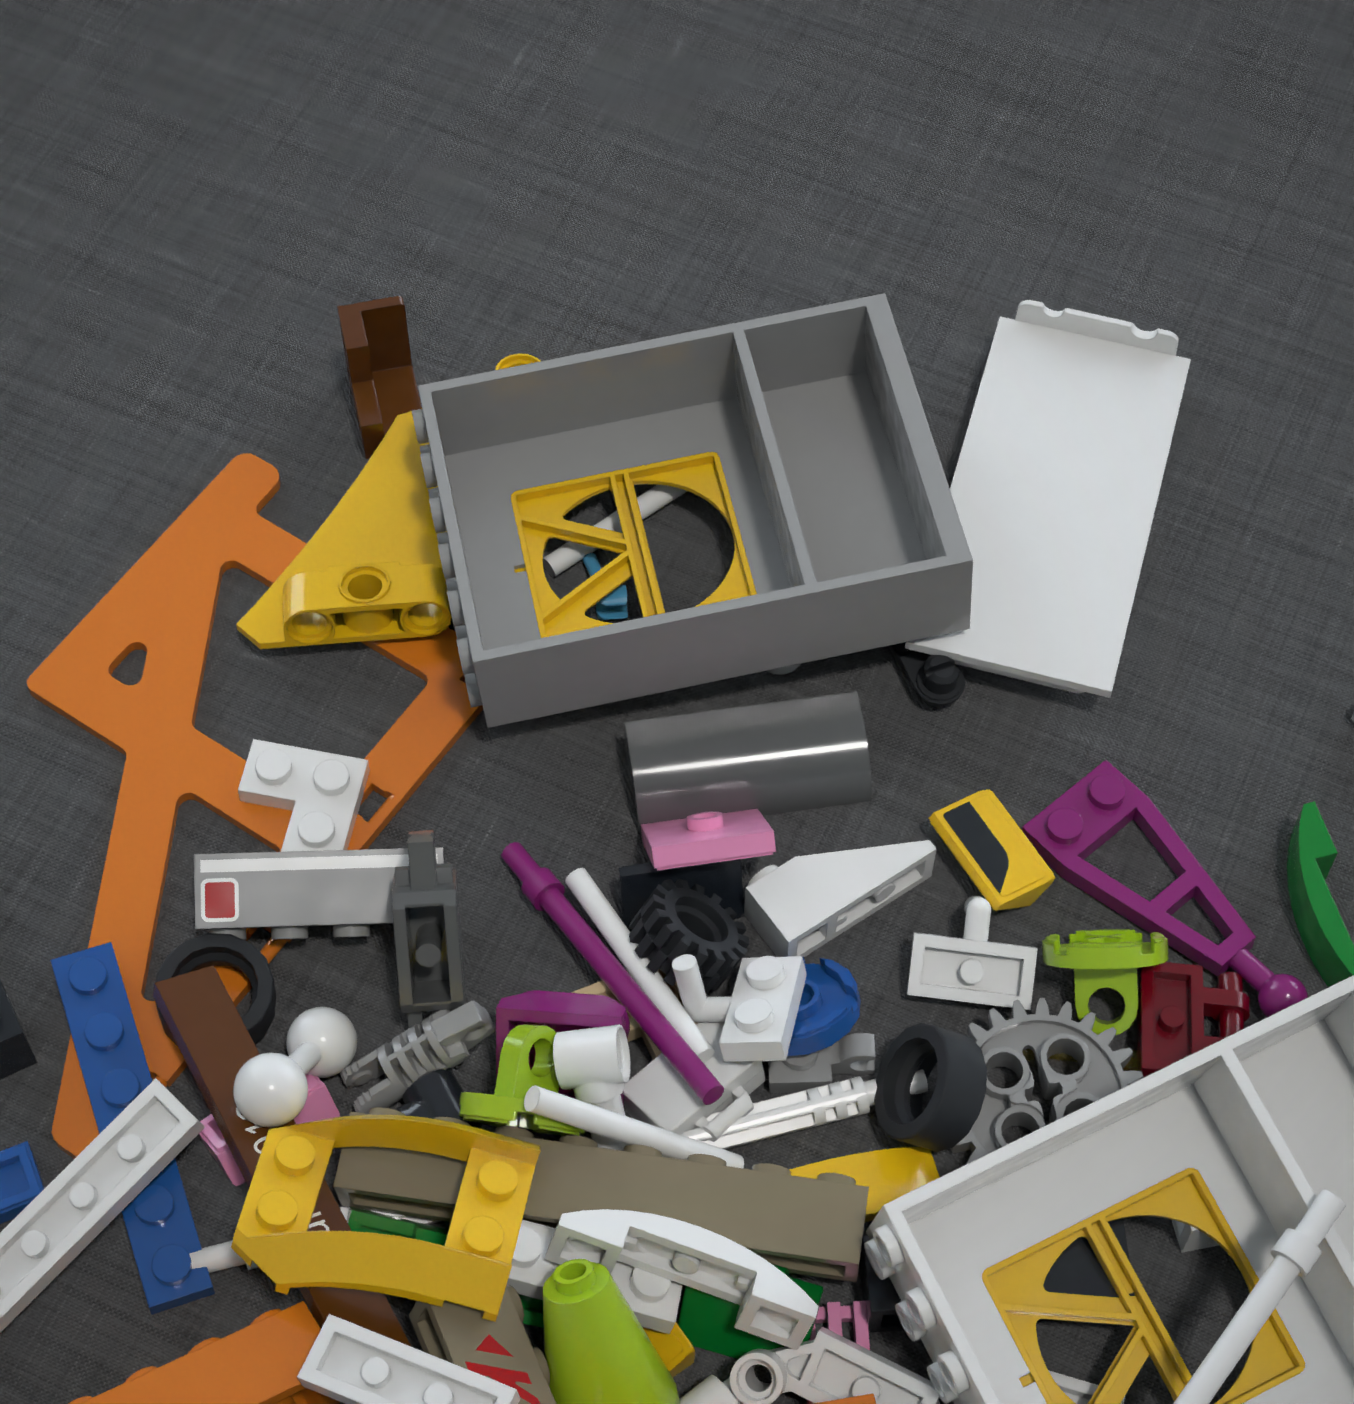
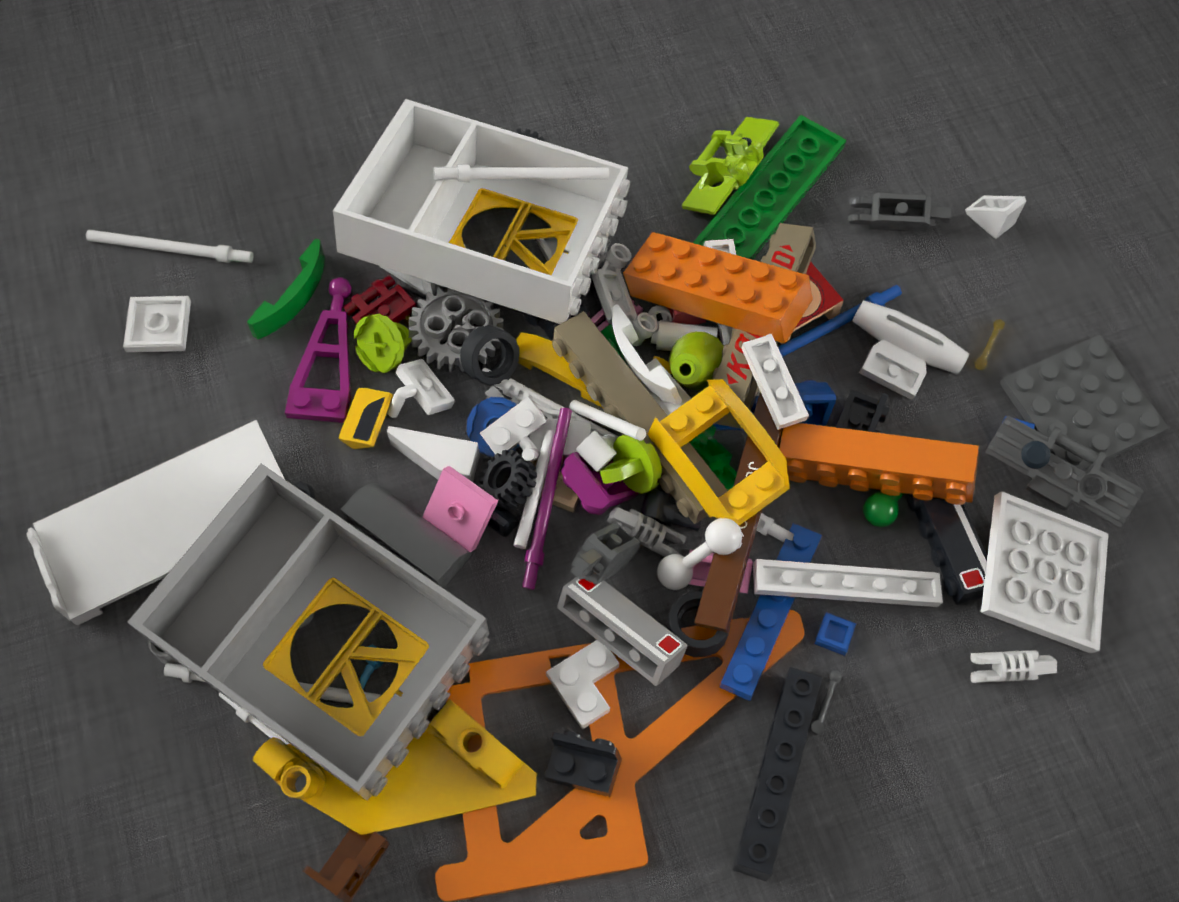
camera: 135 degrees left, 5 degrees up
(209, 705) = (583, 763): none -> black bracket

